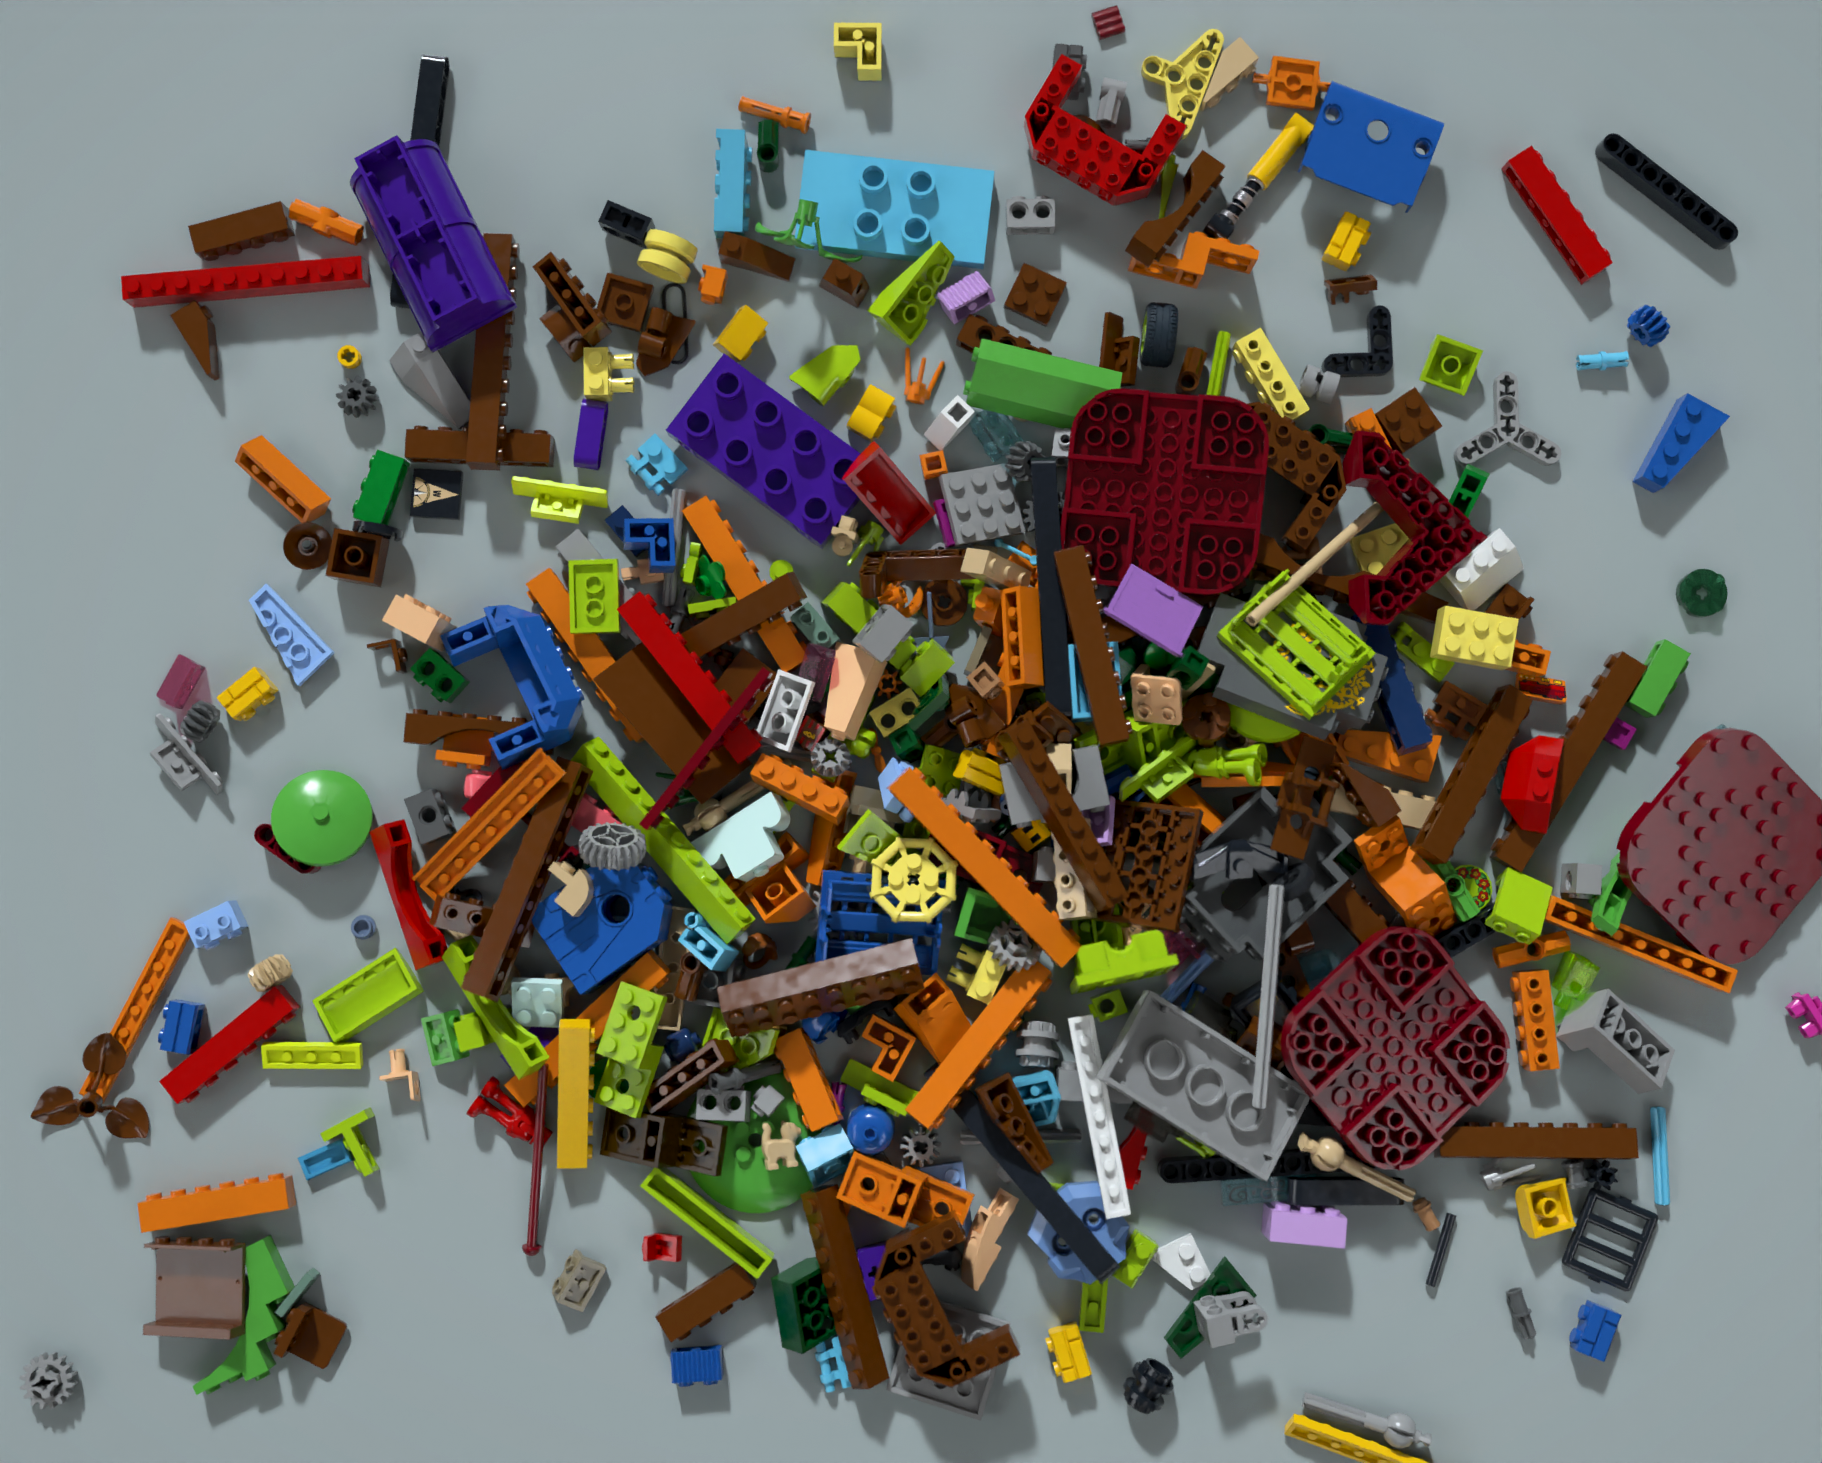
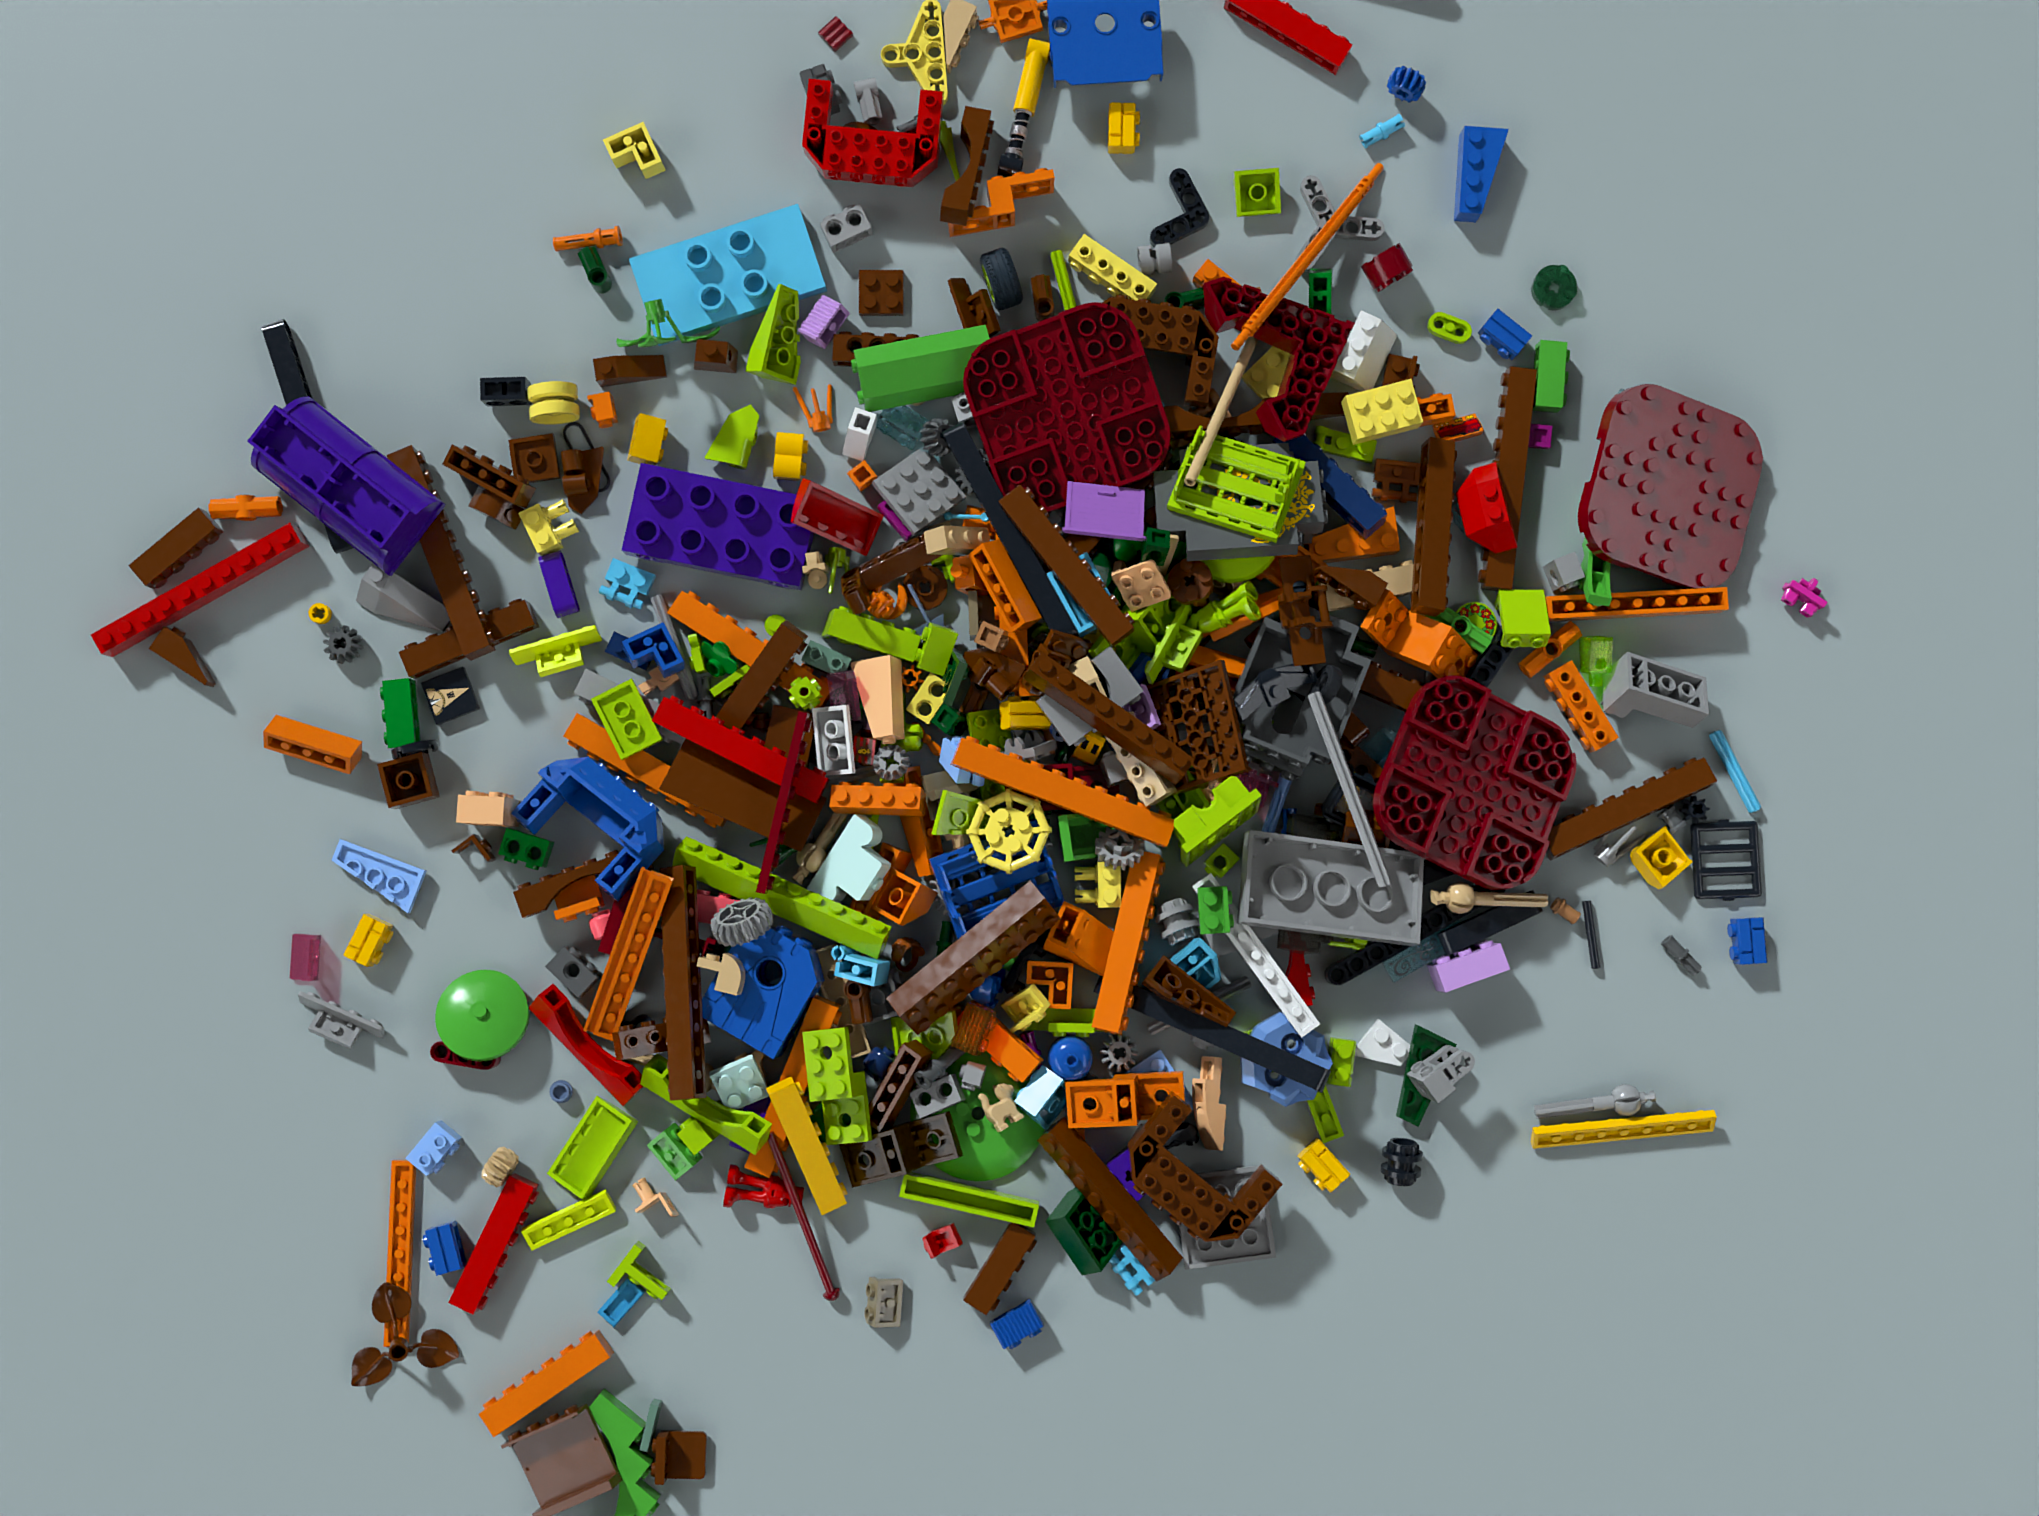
camera: 30 degrees left, 0 degrees up
(200, 721) = (338, 982): dark grey gear -> none
(307, 557) = (371, 792): reddish brown dish -> none
(732, 182) = (579, 315): medium azure wedge -> none
(781, 660) = (811, 699): none -> lime brick
(789, 1057) = (974, 1029): none -> clear orange brick
(850, 1059) = (1026, 1007): none -> light yellow bracket
(883, 633) = (887, 636): light grey slope -> none
(1079, 1052) = (1214, 910): none -> bright green bracket
(1359, 285) = (1148, 160): reddish brown plate -> none
(1407, 421) = (1243, 256): reddish brown brick -> none
(1470, 451) = (1307, 257): none -> orange axle
(1545, 496) = (1386, 266): none -> dark red brick
(1579, 583) = (1449, 326): none -> lime plate
(1630, 617) = (1504, 335): none -> blue brick

